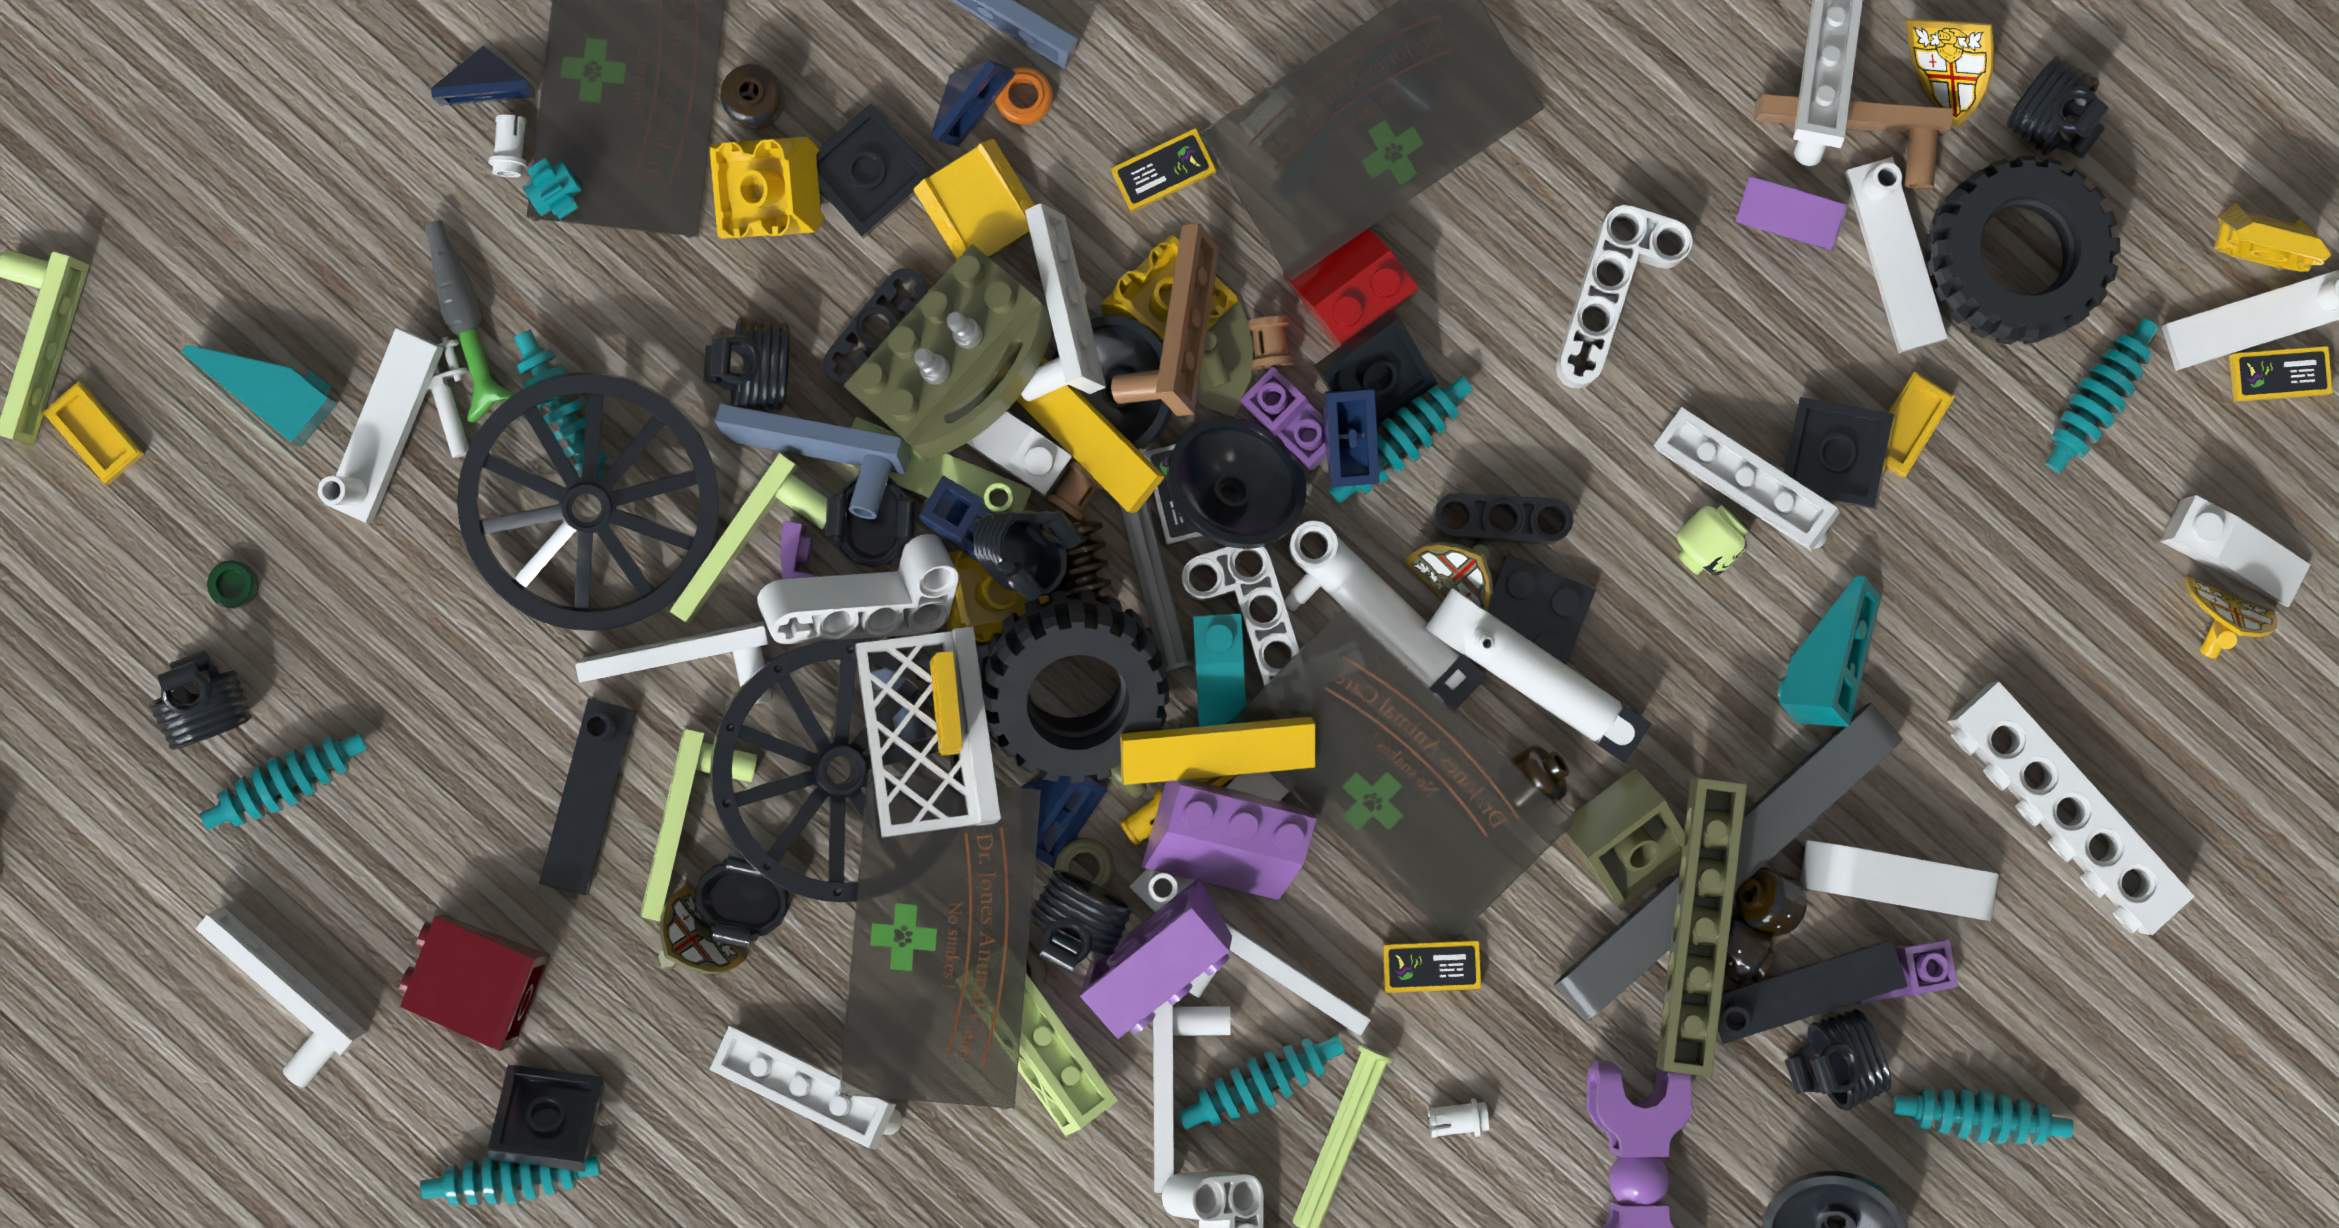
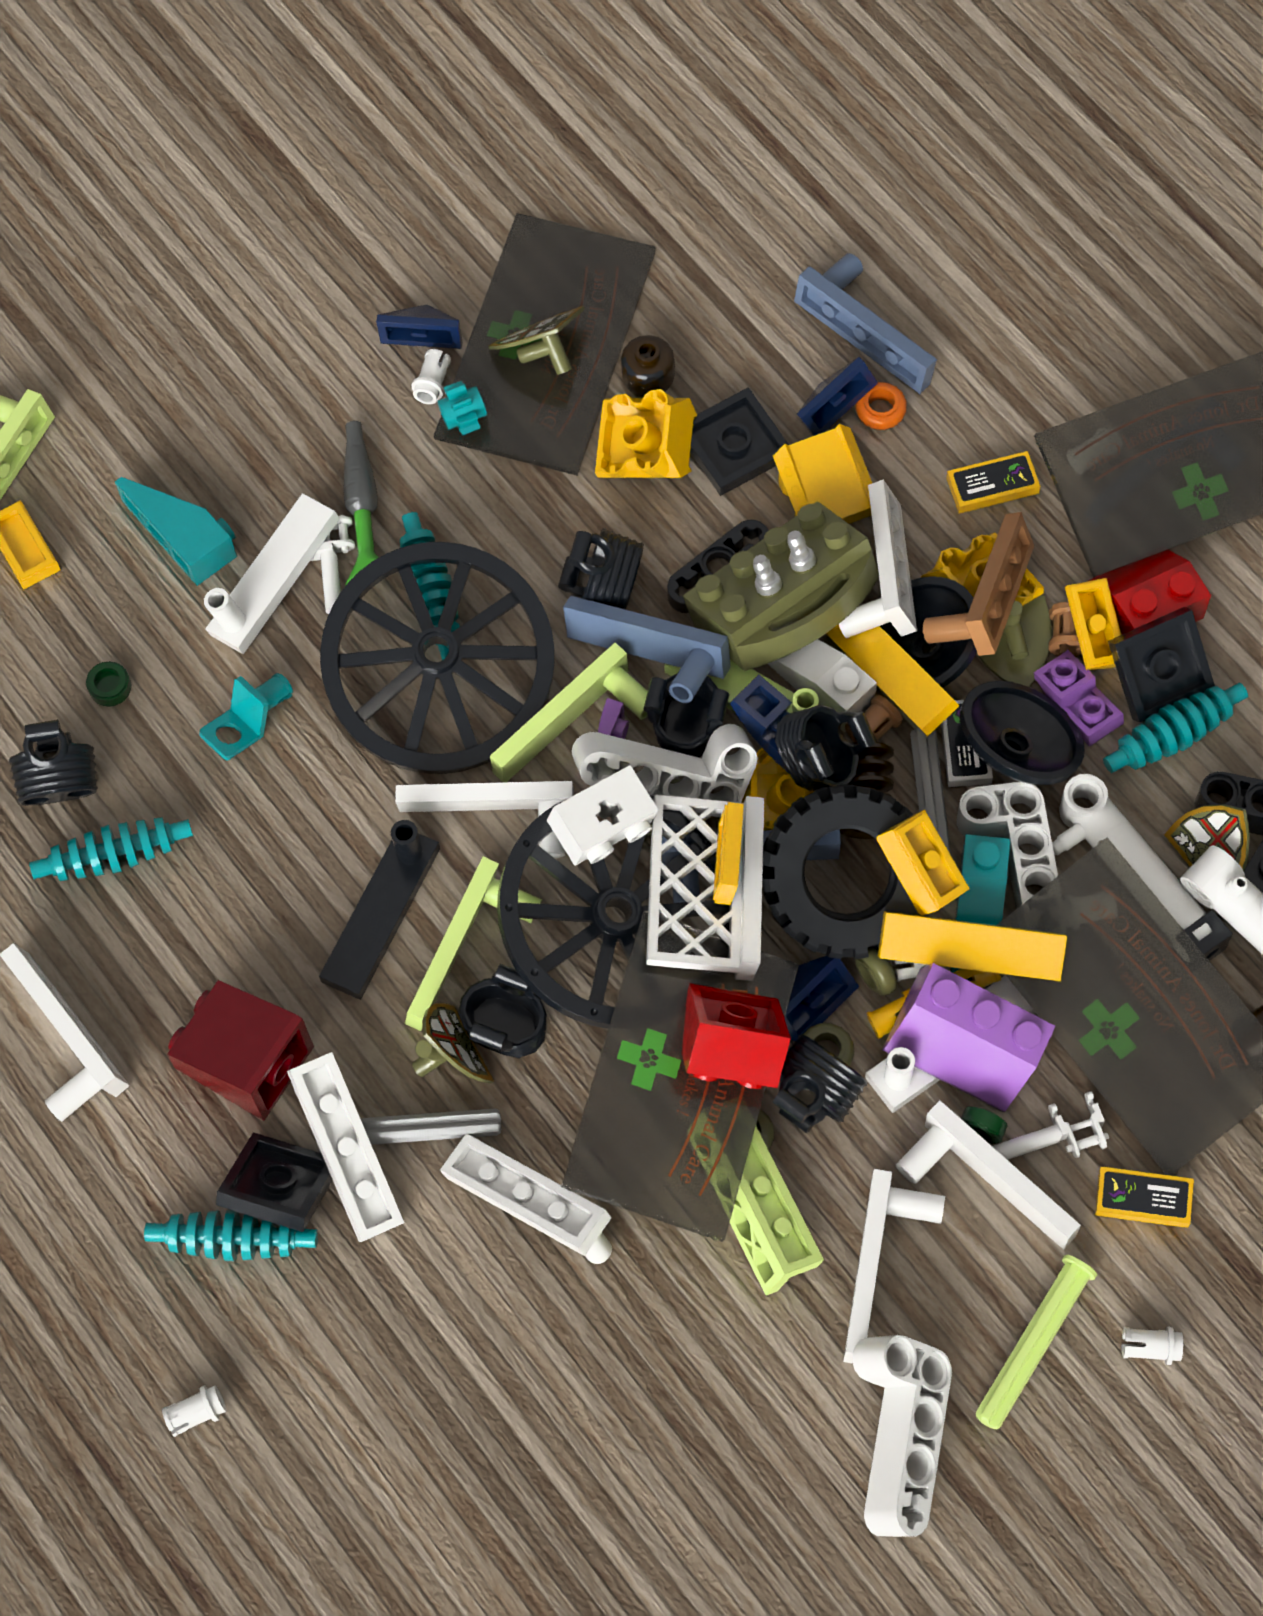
camera: 15 degrees right, 20 degrees down
(395, 597) = (246, 714): none -> teal bracket
(606, 1069) = (345, 1147): none -> white piece
(623, 80) = (550, 342): none -> olive shield
(666, 1030) = (432, 1126): none -> light grey axle
(816, 659) = (616, 796): none -> white brick
(986, 895) = (734, 1037): none -> slope
(1153, 681) = (922, 863): none -> yellow slope
(1157, 961) = (884, 1130): medium lavender slope -> none
(1209, 1107) = (965, 1273): teal piece -> none
(1257, 924) = (985, 1123): none -> dark green tile
(1296, 336) = (1094, 621): none -> yellow slope
(1330, 917) = (1058, 1132): none -> white piece
(1351, 437) = (1133, 704): dark blue slope -> none

